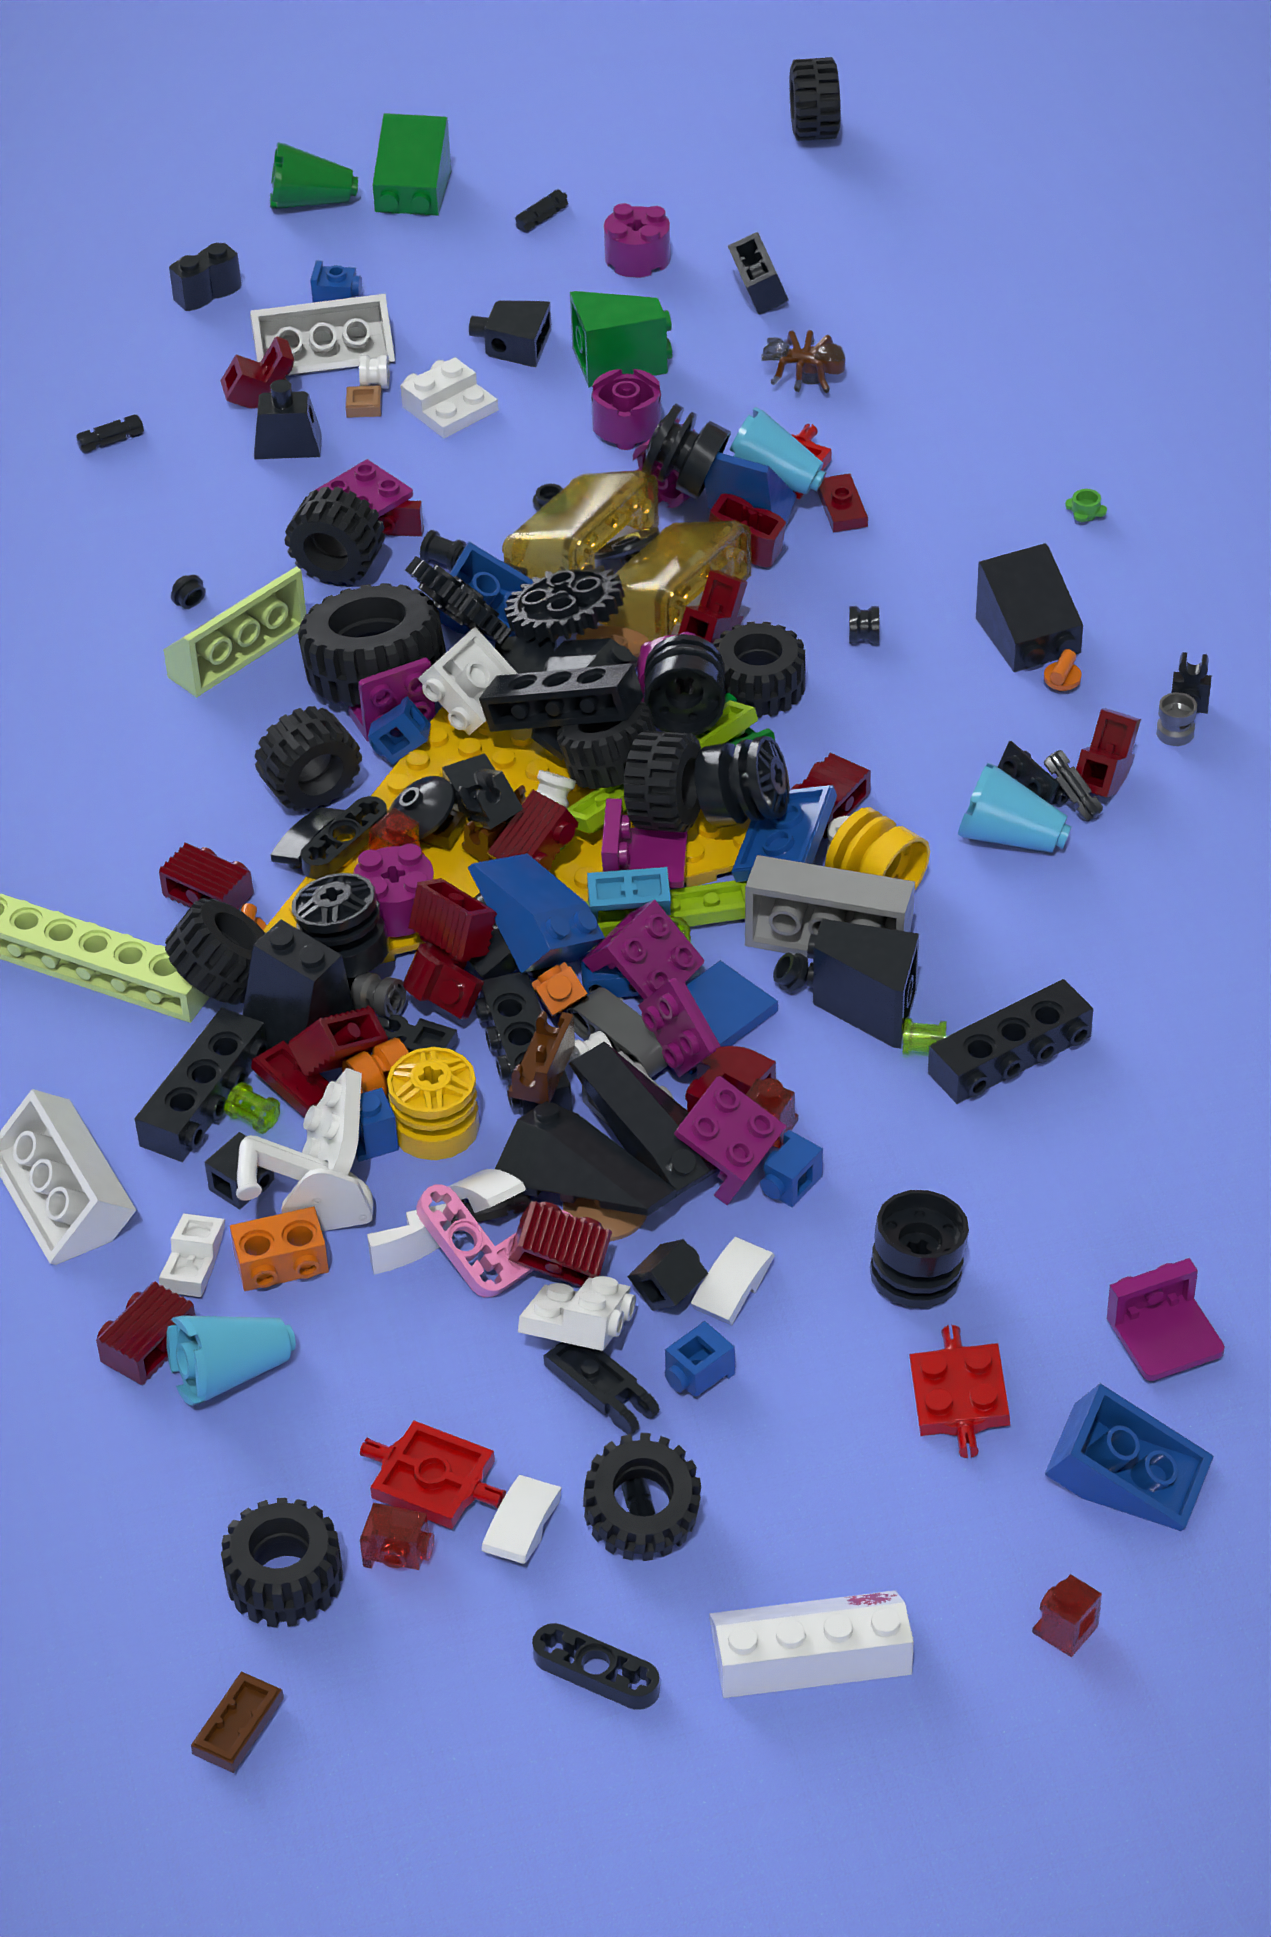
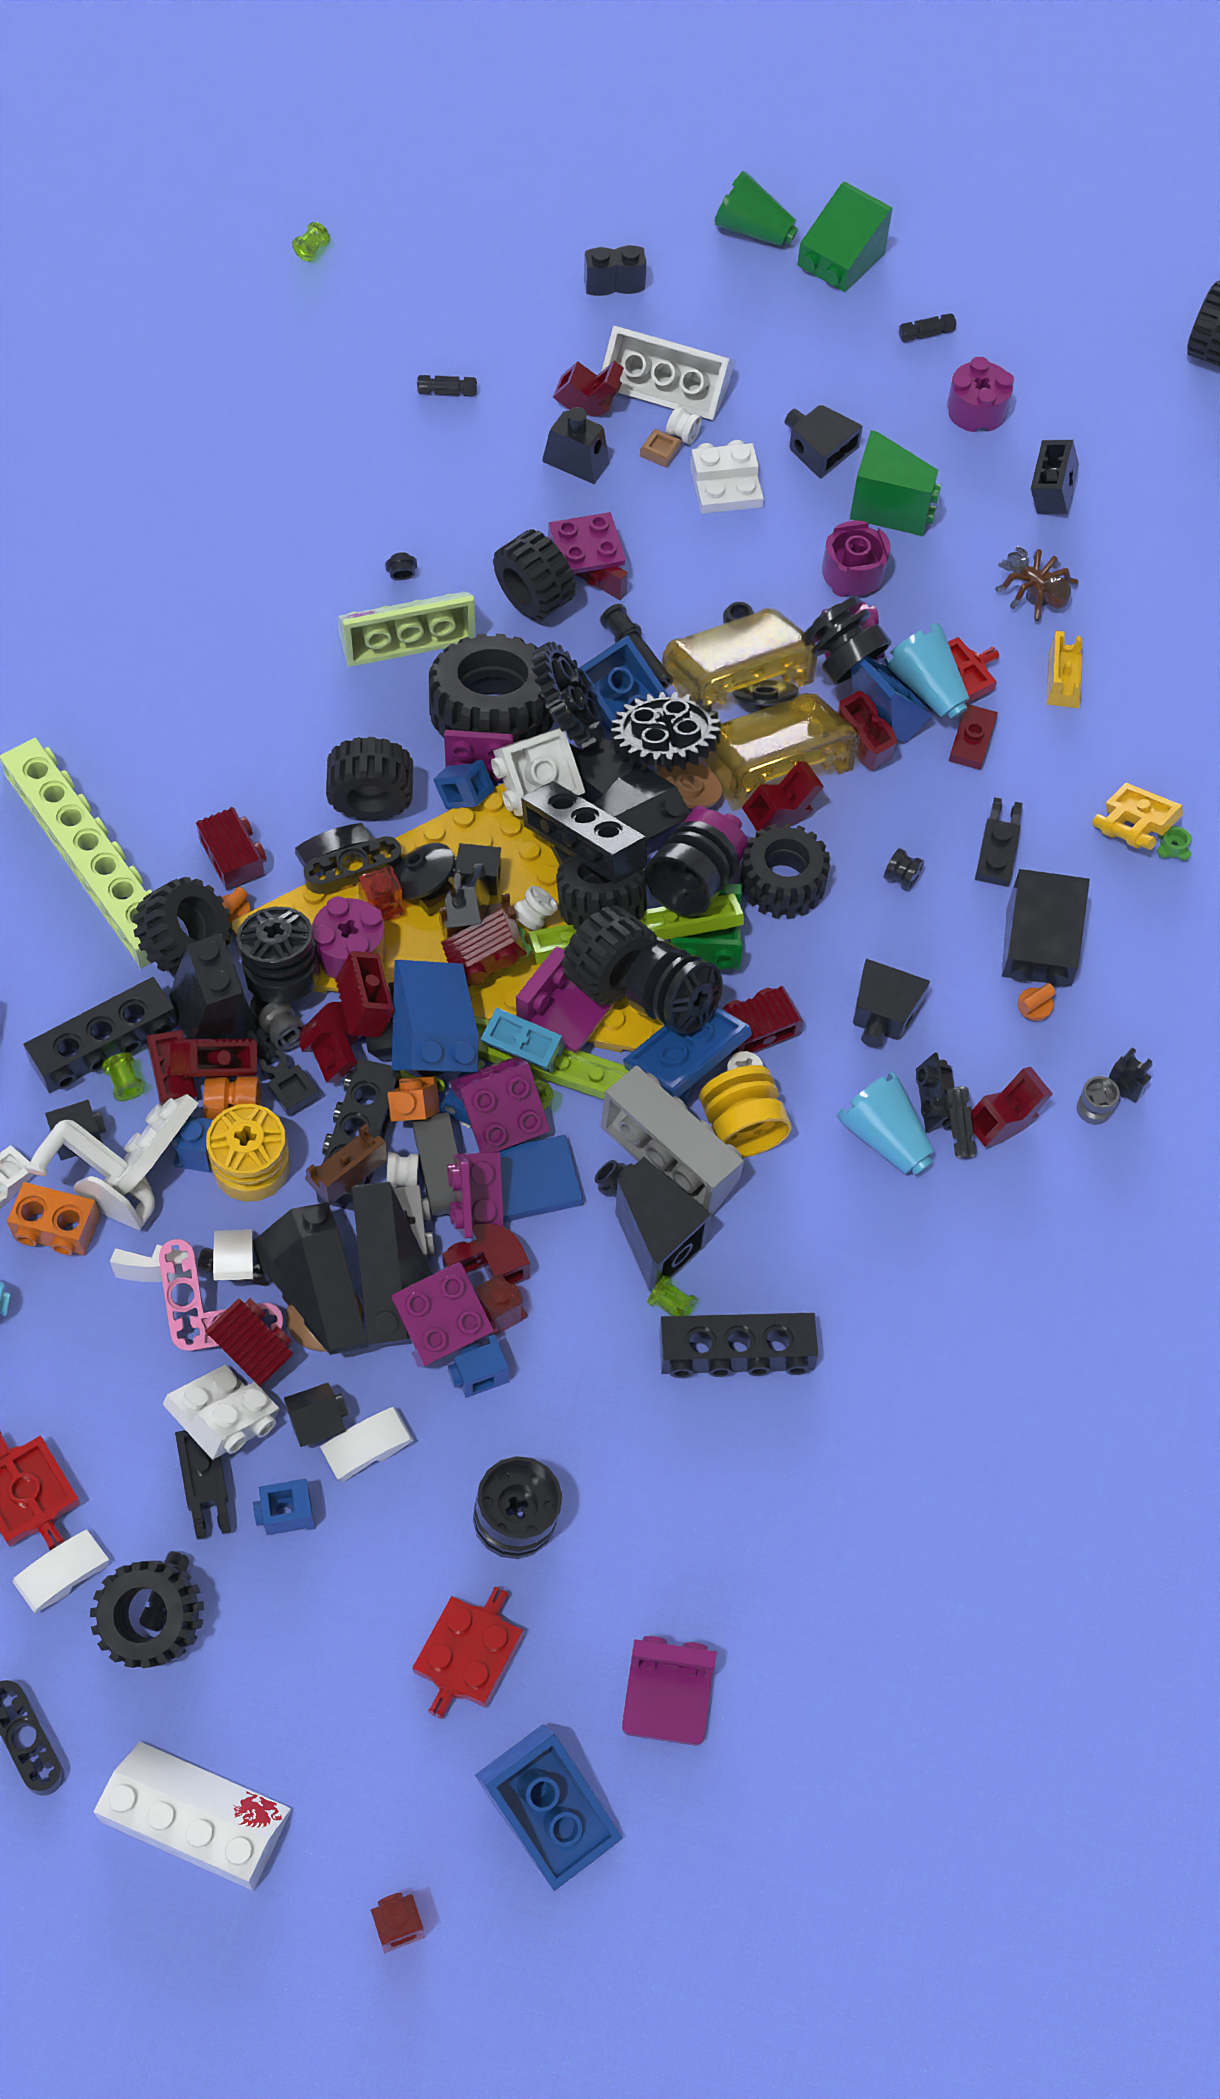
camera: 25 degrees right, 15 degrees up
(334, 282) = (709, 326): blue brick -> none
(883, 420) = (1064, 672): none -> yellow hinge
(929, 728) = (887, 1002): none -> black torso
(932, 572) = (999, 845): none -> black hinge
(1038, 488) = (1141, 808): none -> yellow plate

